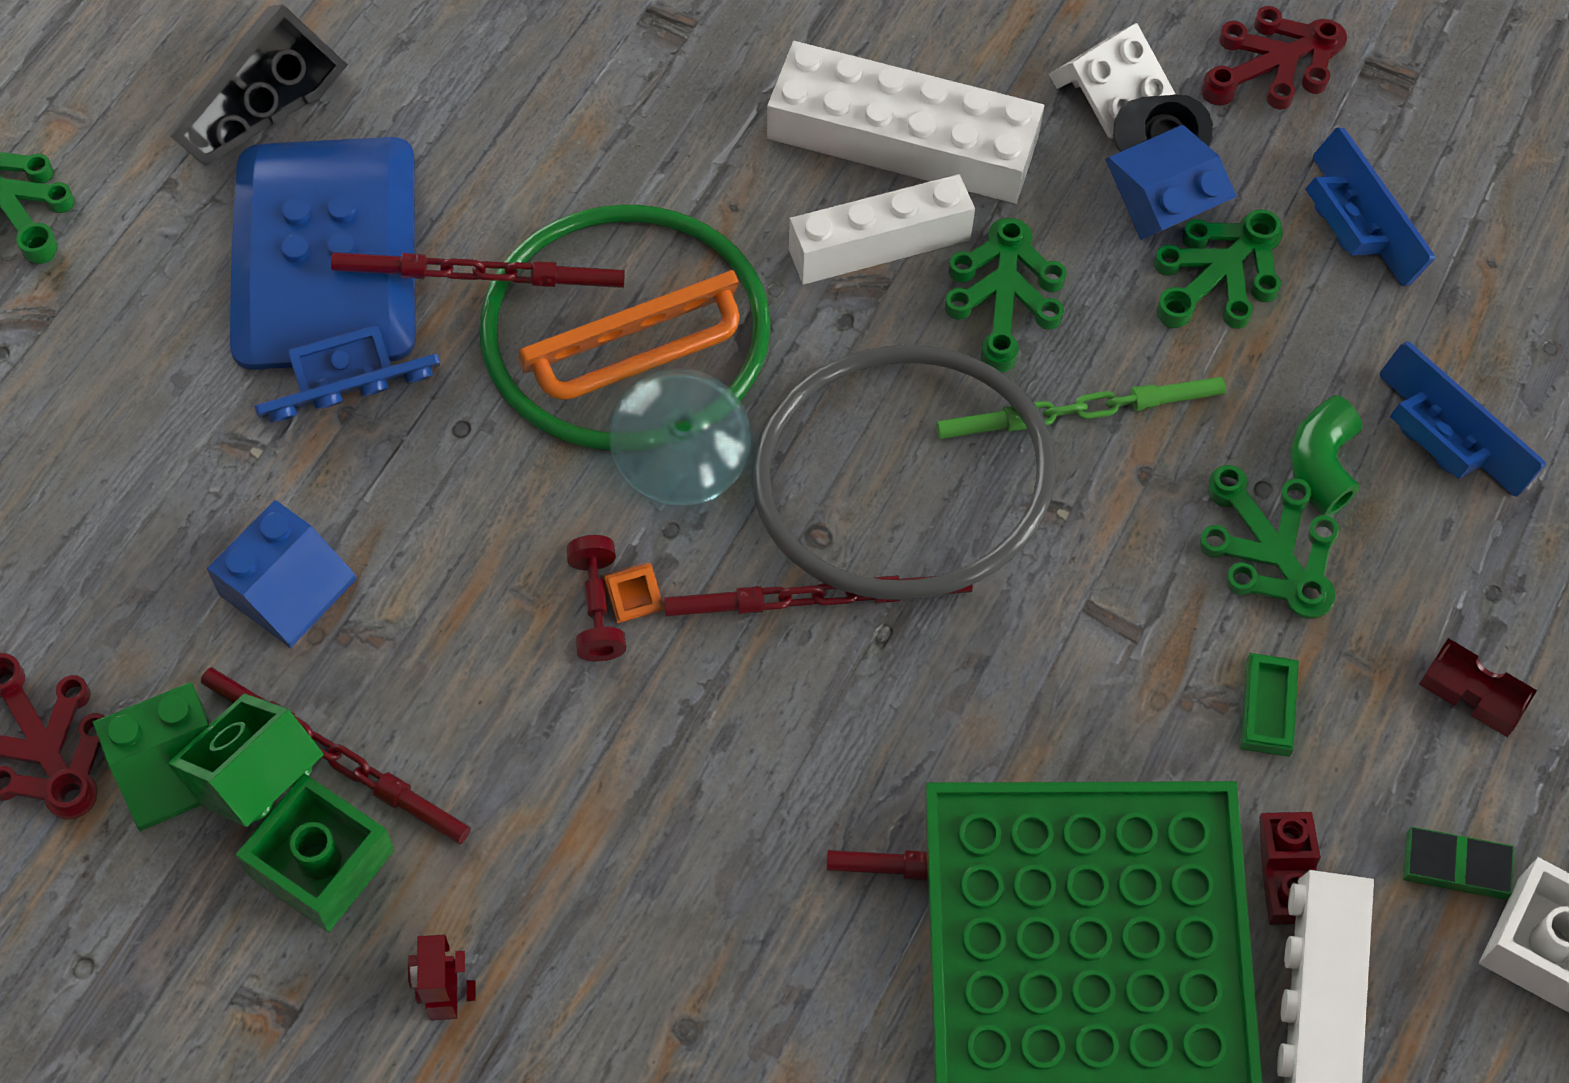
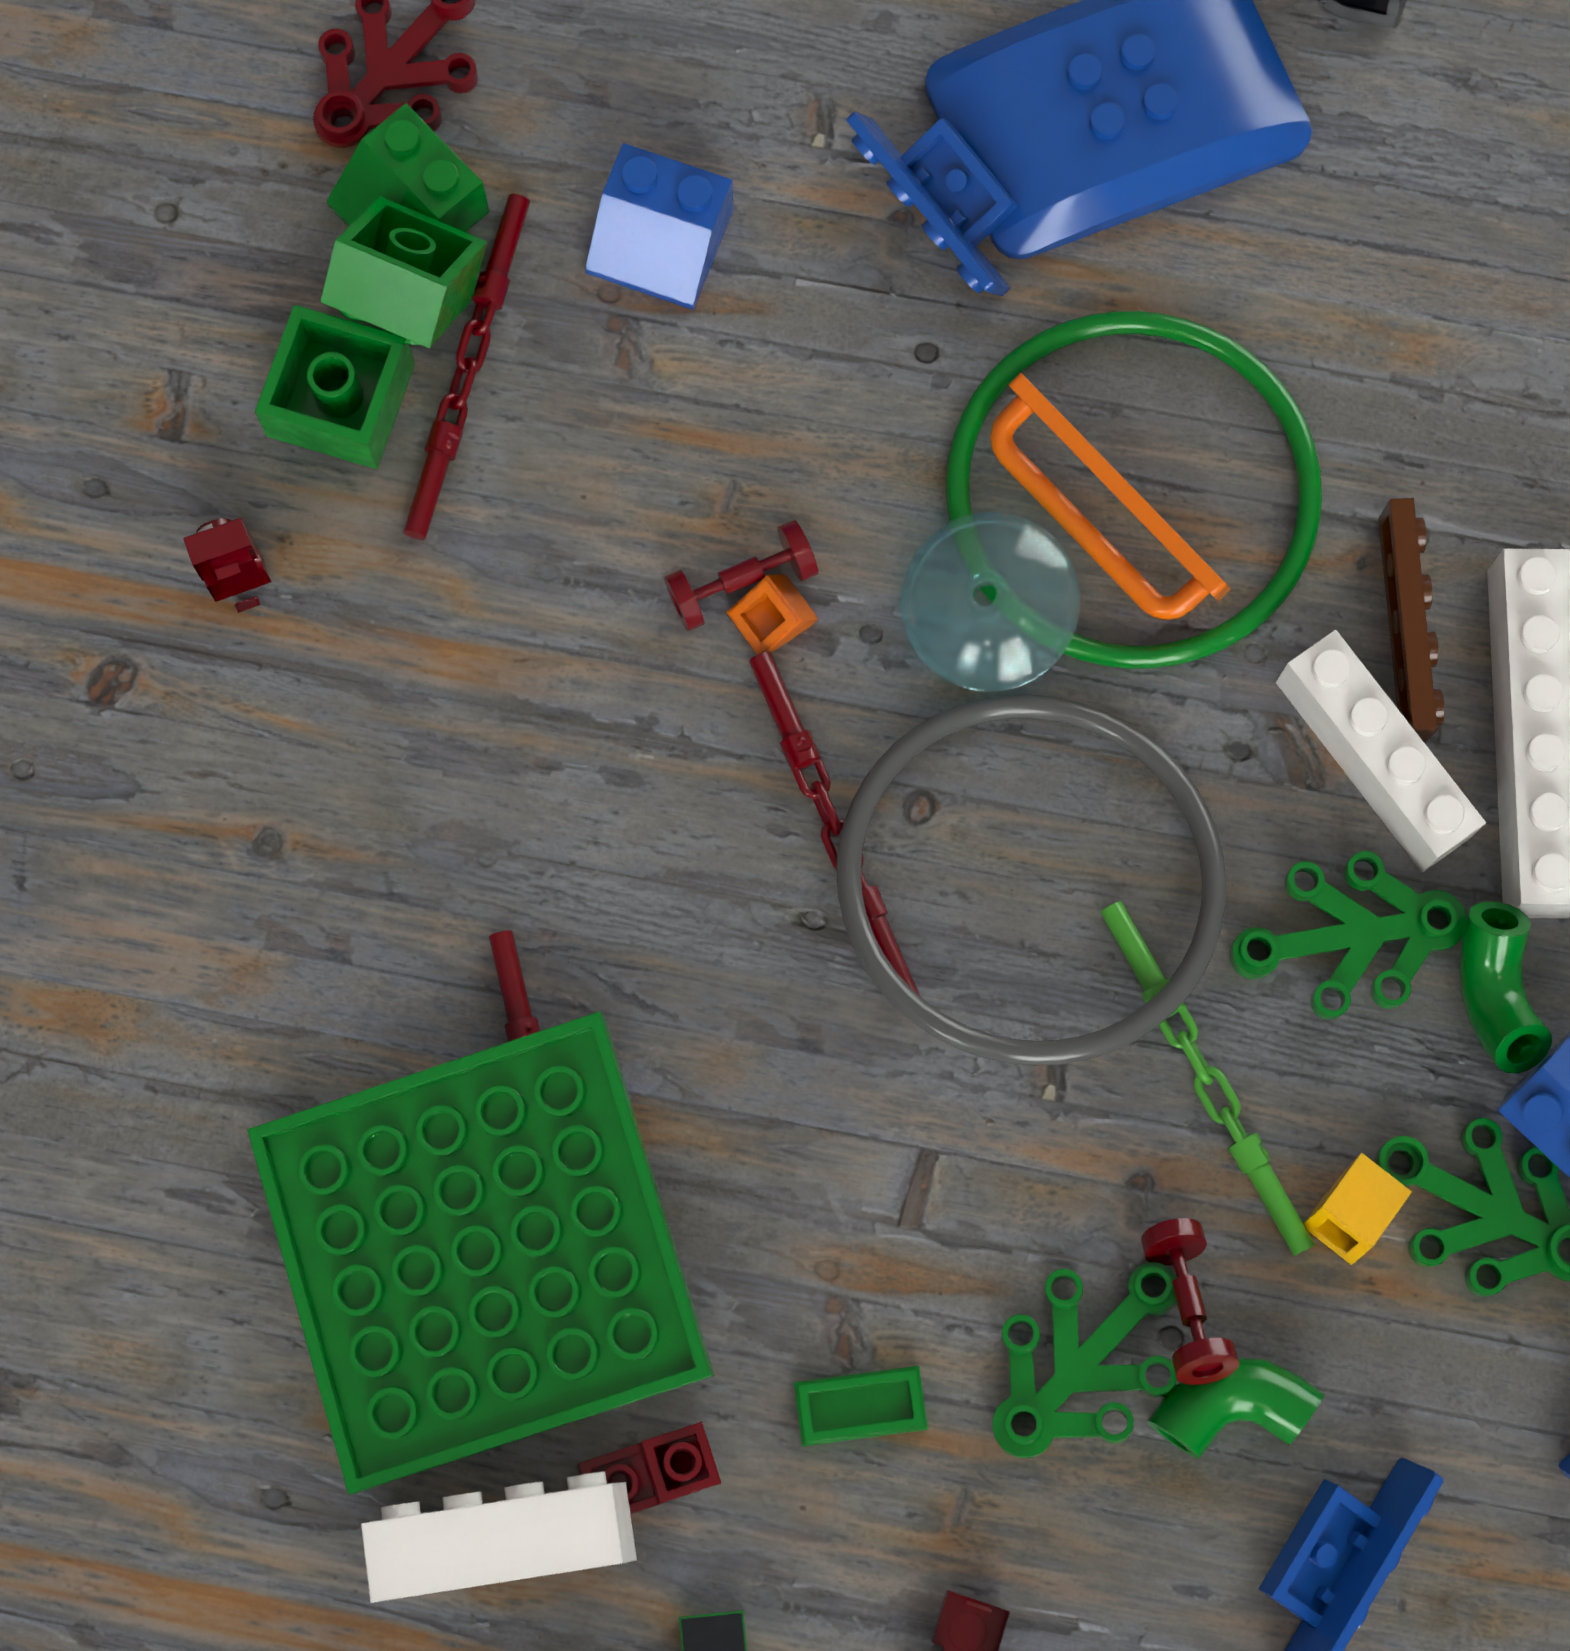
camera: 75 degrees right, 15 degrees up
(415, 267) = (1155, 363): dark red piece -> none
(781, 183) = (1407, 598): none -> reddish brown plate
(1072, 215) = (1495, 987): none -> green cylinder
(1200, 457) = (1204, 1358): none -> dark red wheel
(1204, 342) = (1357, 1209): none -> yellow brick

